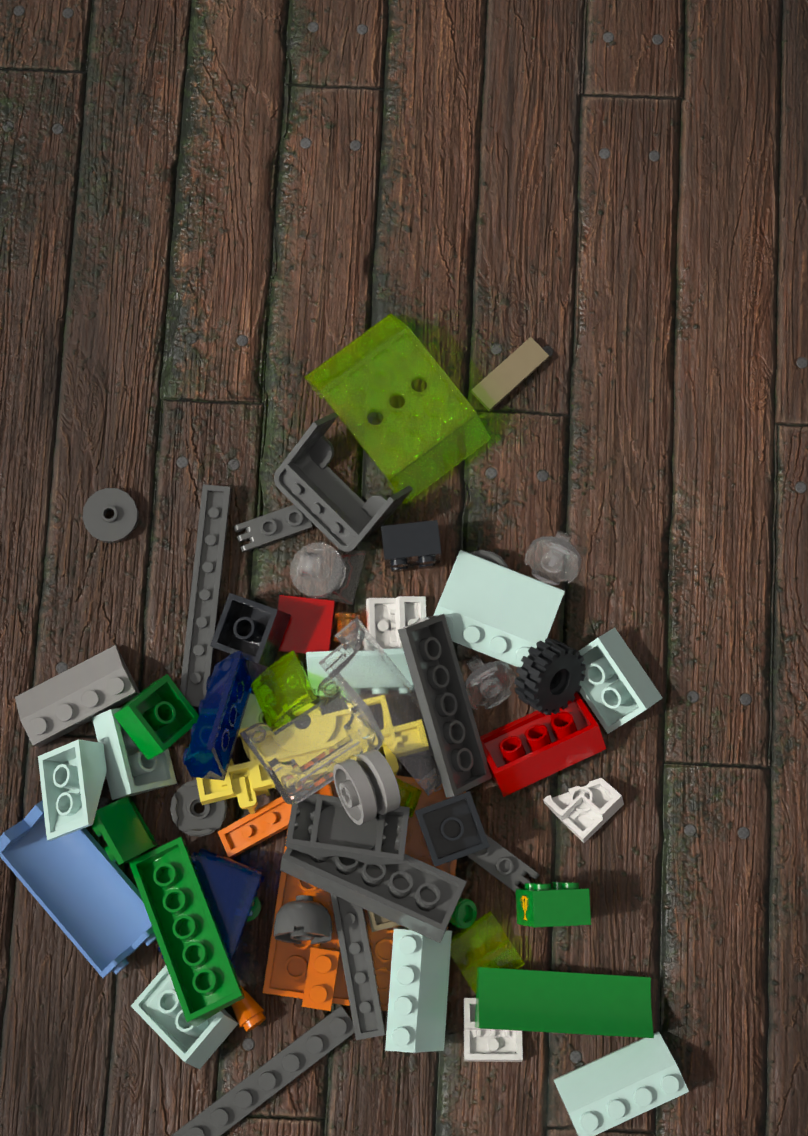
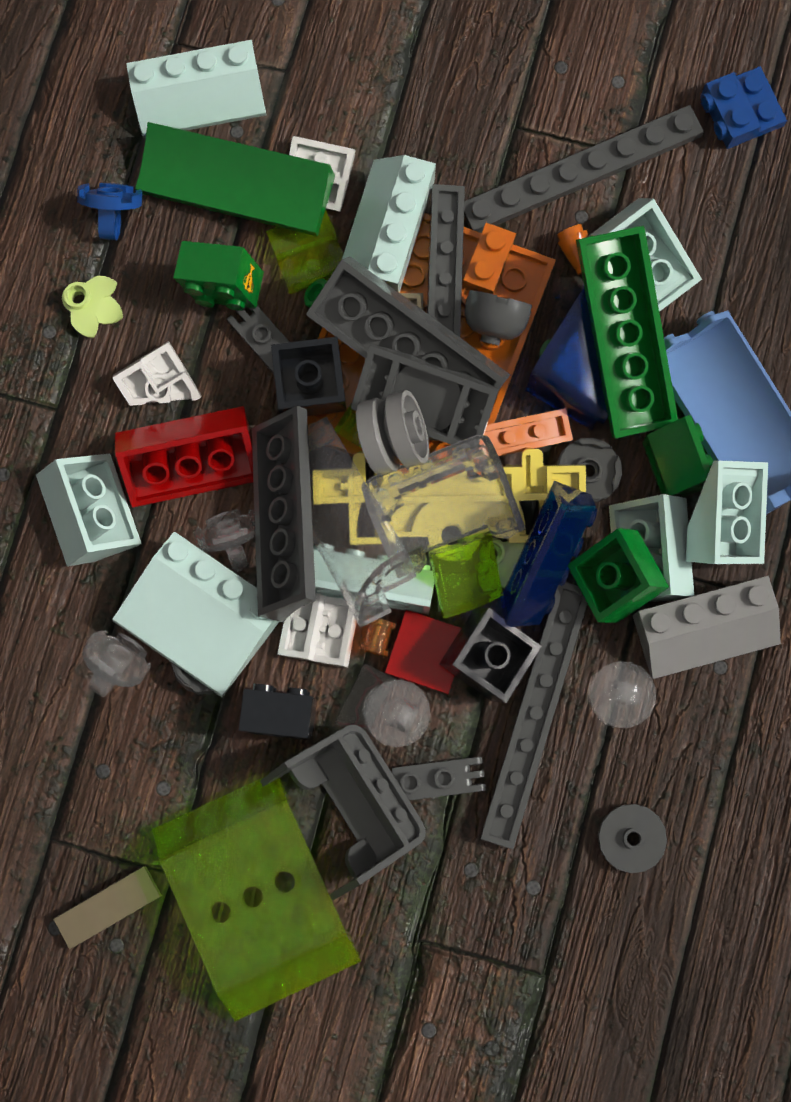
camera: 165 degrees left, 0 degrees up
(138, 626) = (622, 695): none -> clear tile
(550, 676) = (155, 522): black tyre -> none
(654, 861) = (96, 307): none -> yellowish green plate
(668, 957) = (109, 201): none -> blue tile

